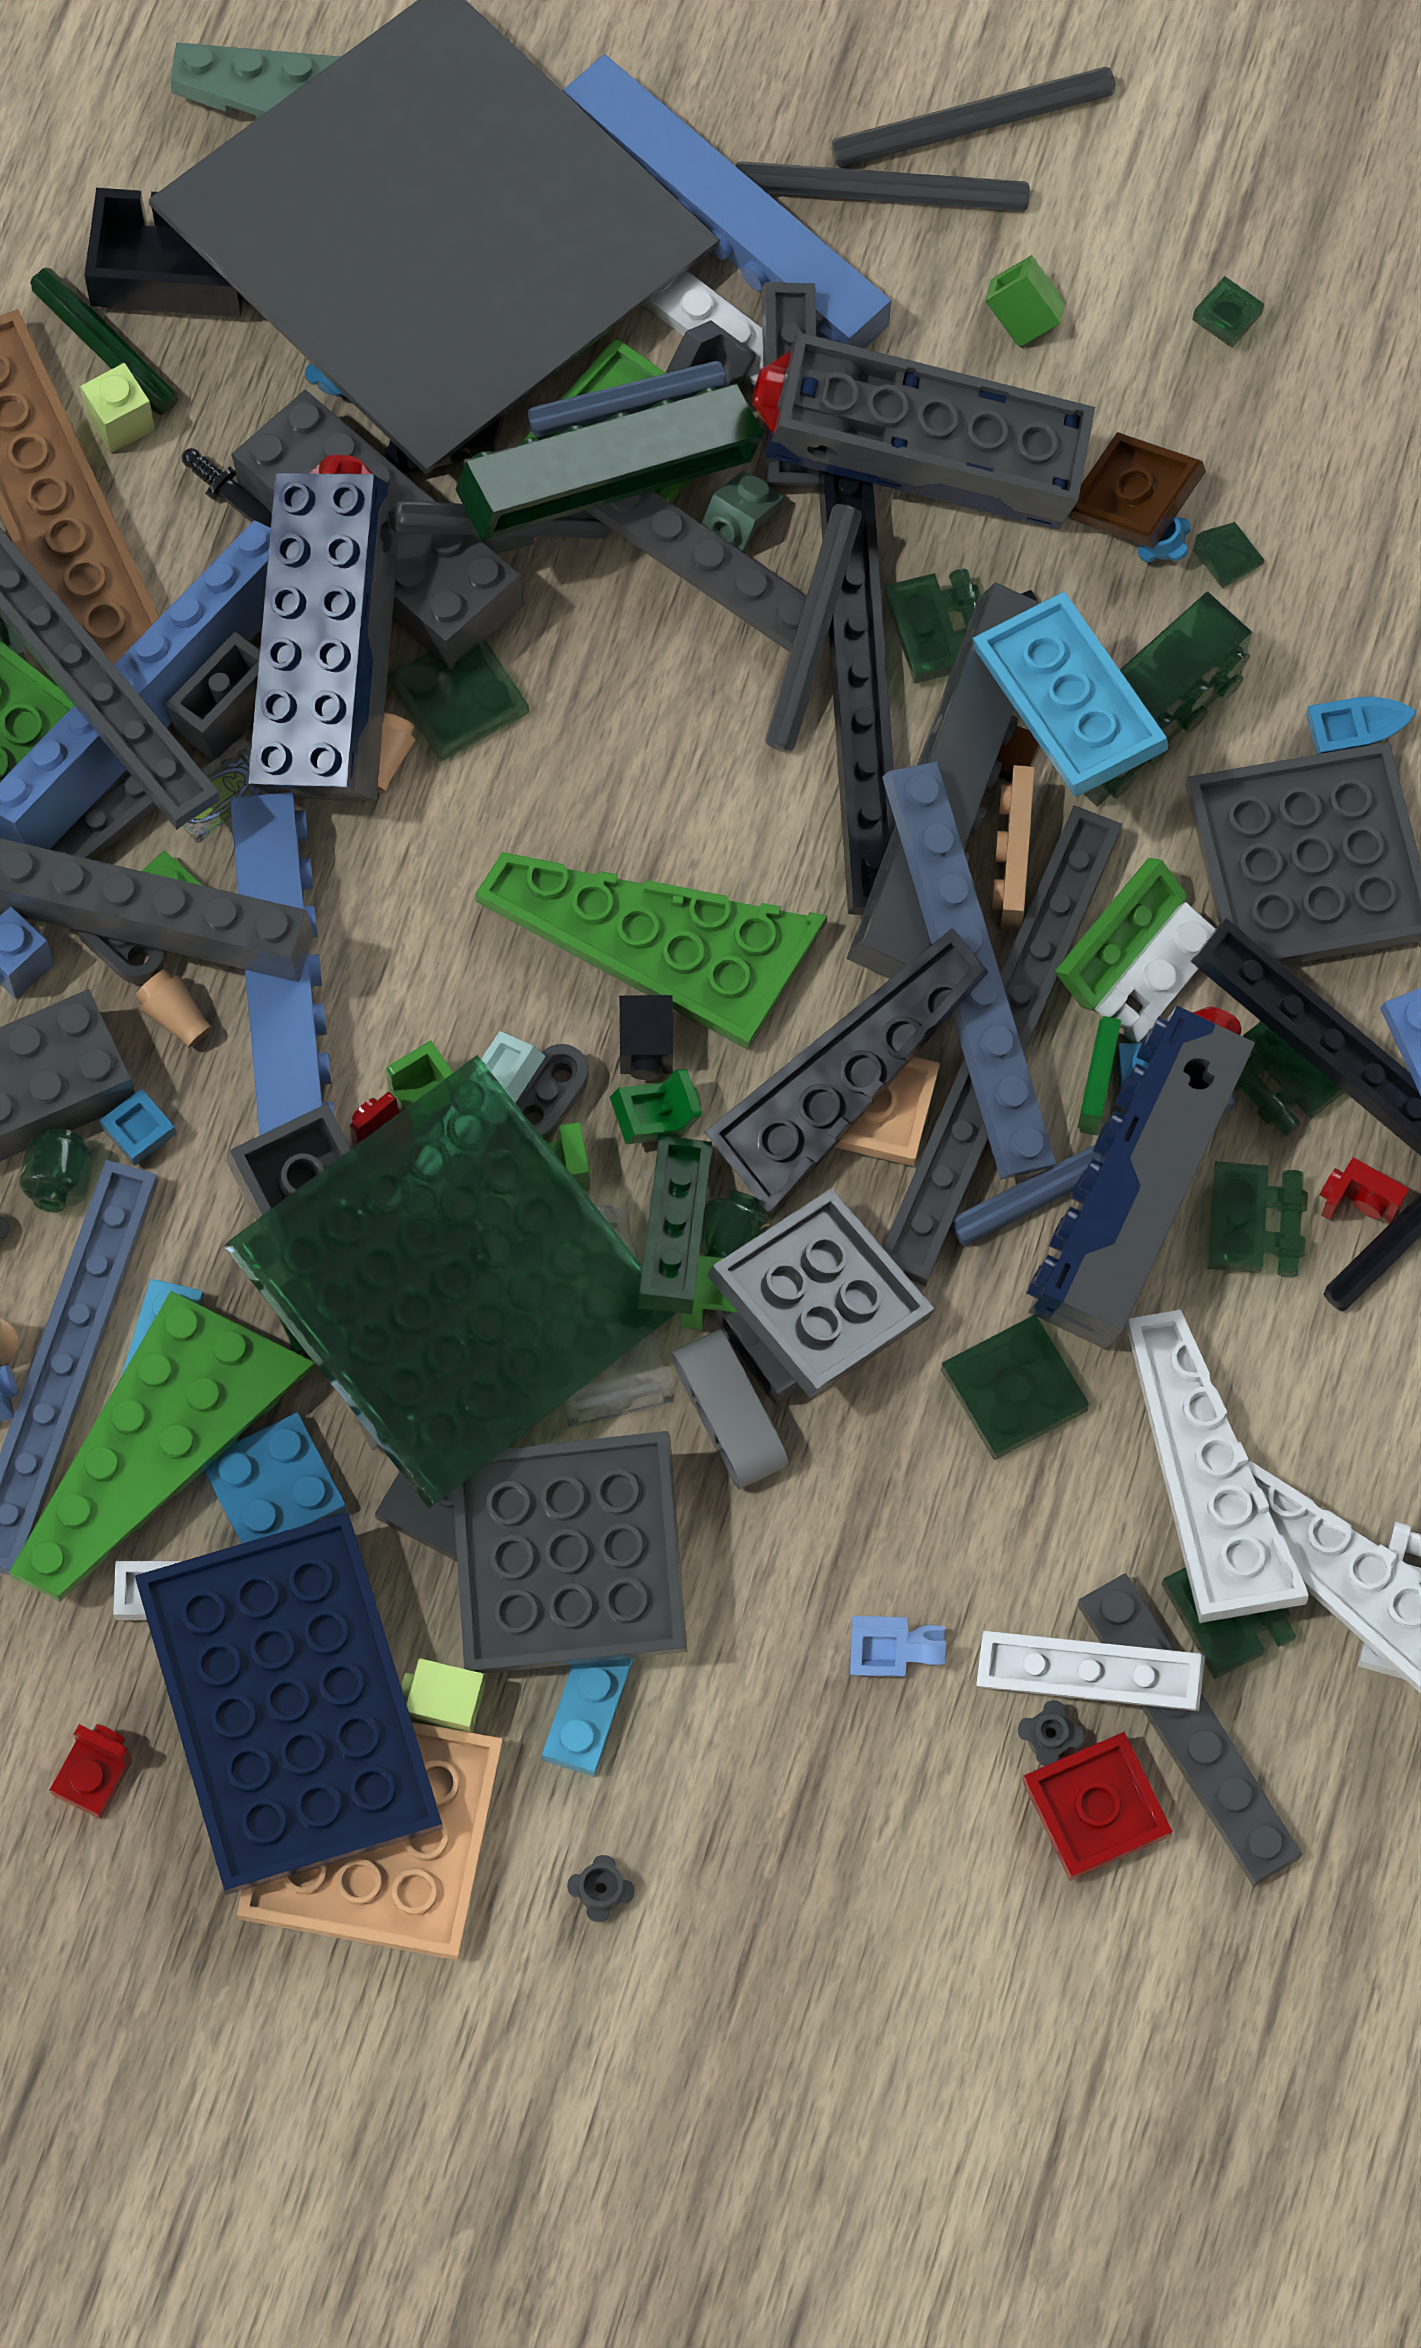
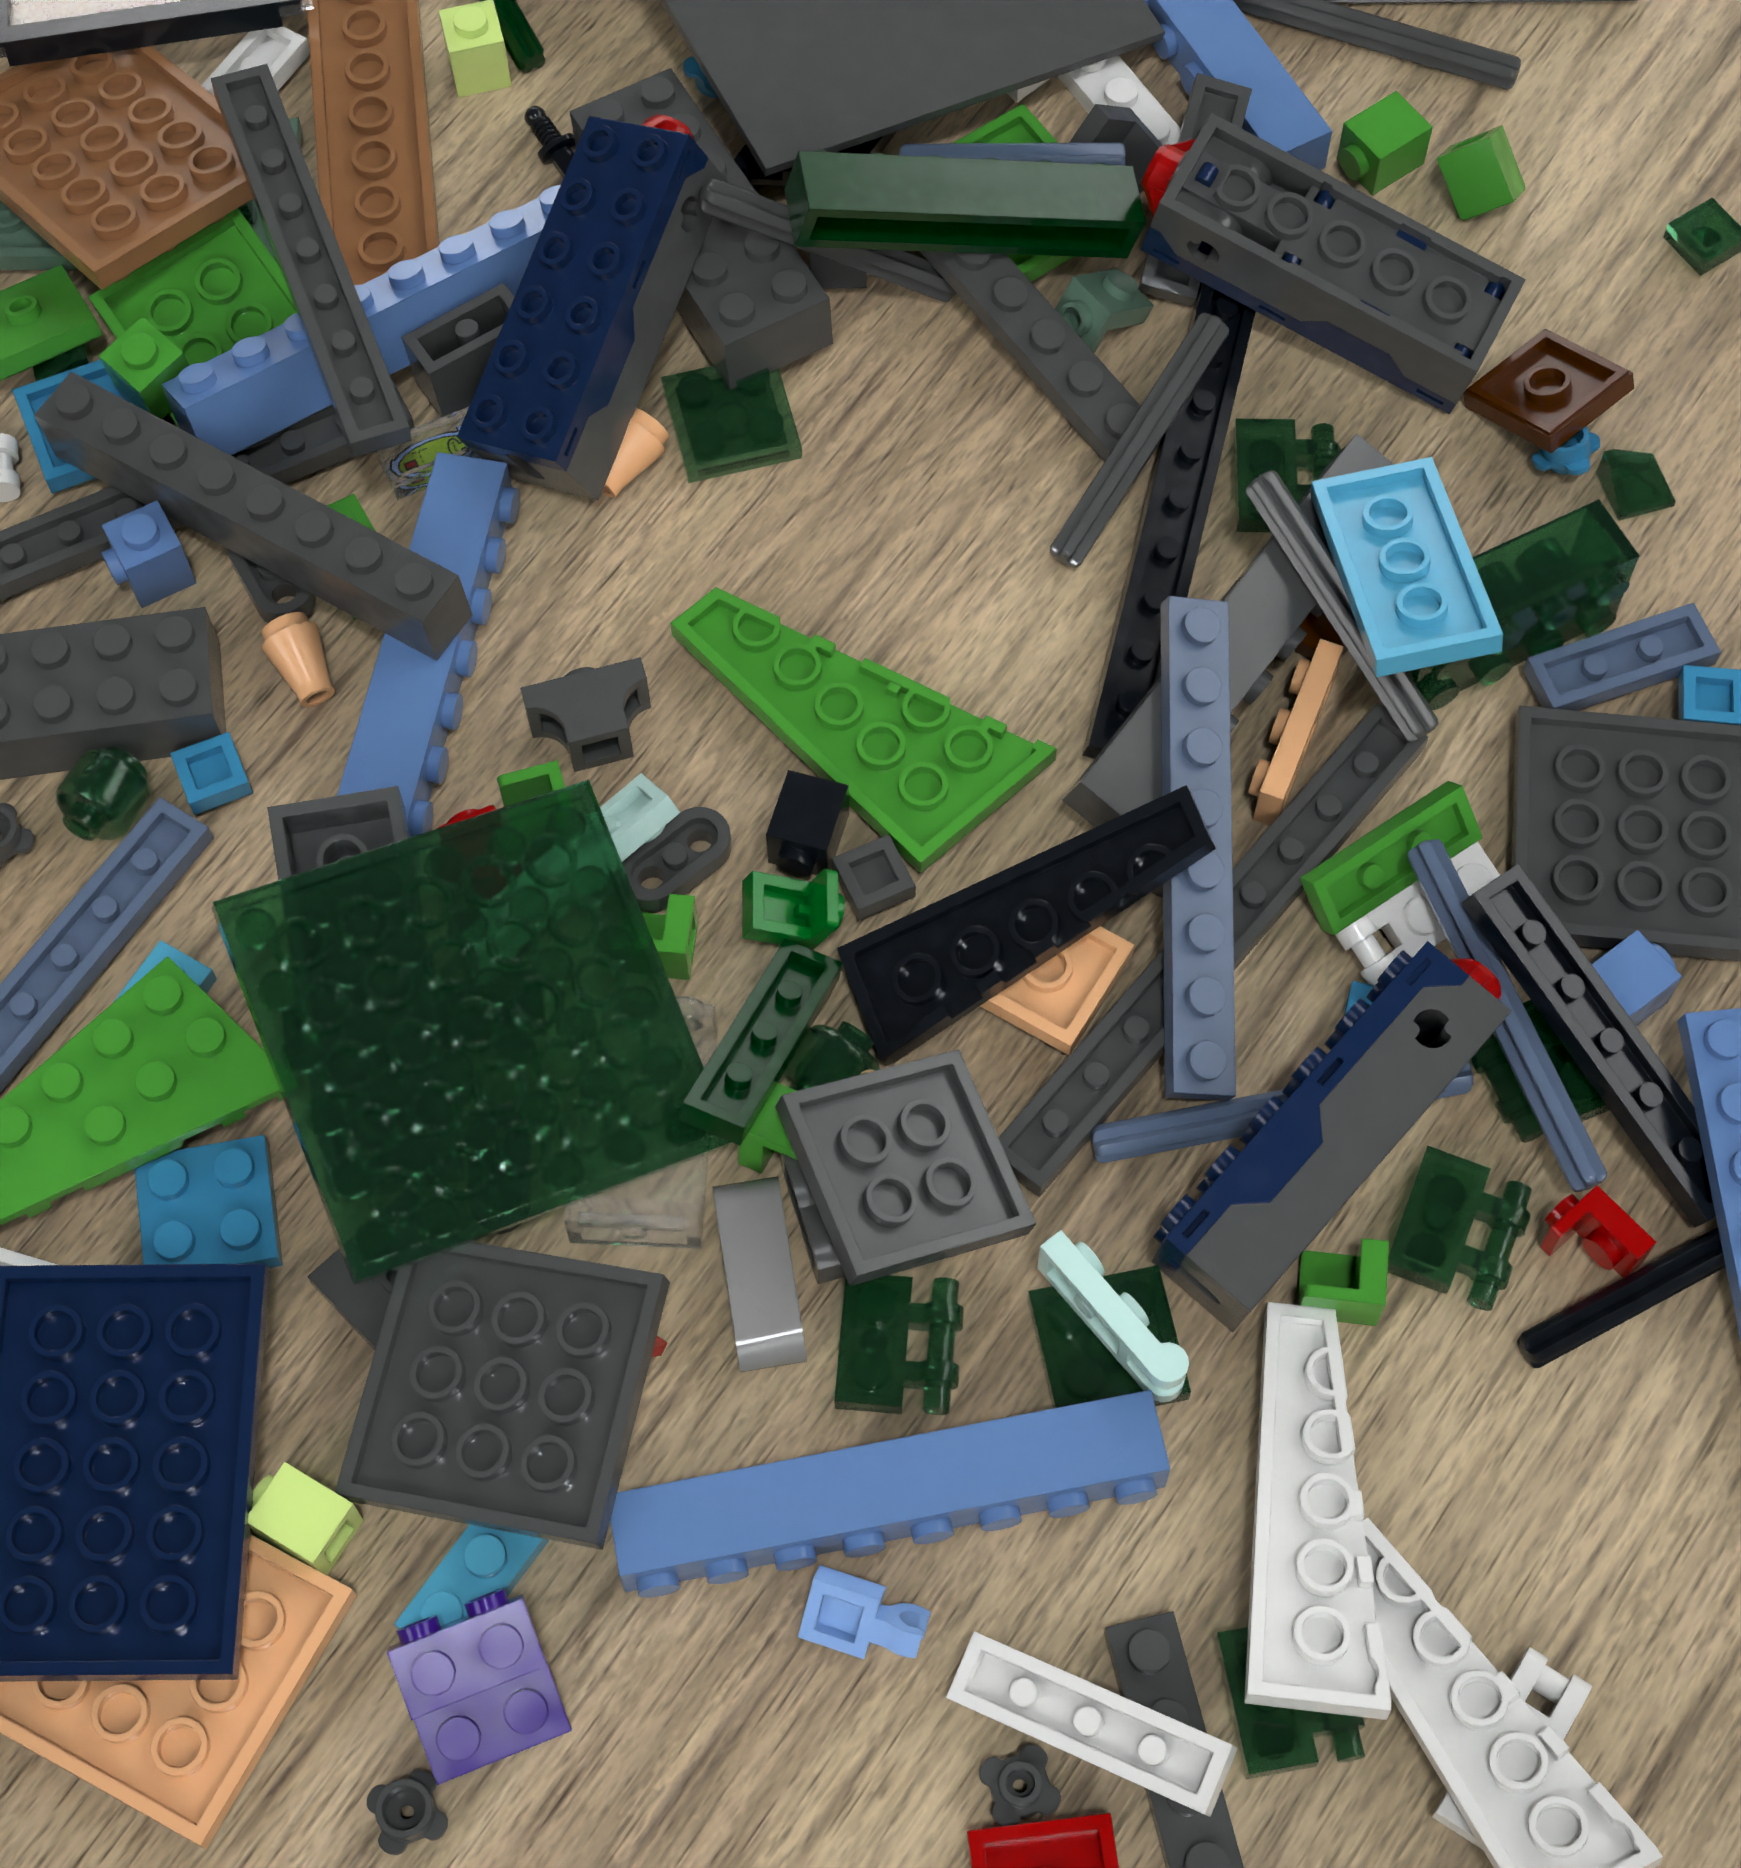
camera: 20 degrees right, 5 degrees down
(434, 988) = (590, 711): none -> dark grey brick
(624, 1779) = (477, 1685): none -> plate
(713, 1064) = (874, 877): none -> dark grey plate
(836, 1439) = (875, 1345): none -> clear green plate
(886, 1546) = (888, 1493): none -> medium blue brick
(935, 295) = (1383, 143): none -> bright green brick
(1002, 716) = (1322, 579): none -> dark grey axle
(1016, 1365) = (1113, 1317): none -> light aqua plate
(1099, 1075) = (1318, 1008): green tile -> none
(1183, 1286) = (1346, 1282): none -> bright green panel
(1257, 714) = (1621, 660): none -> sand blue plate
(1264, 1057) = (1516, 1033): none -> sand blue axle
(1340, 978) = (1639, 976): none -> medium blue brick

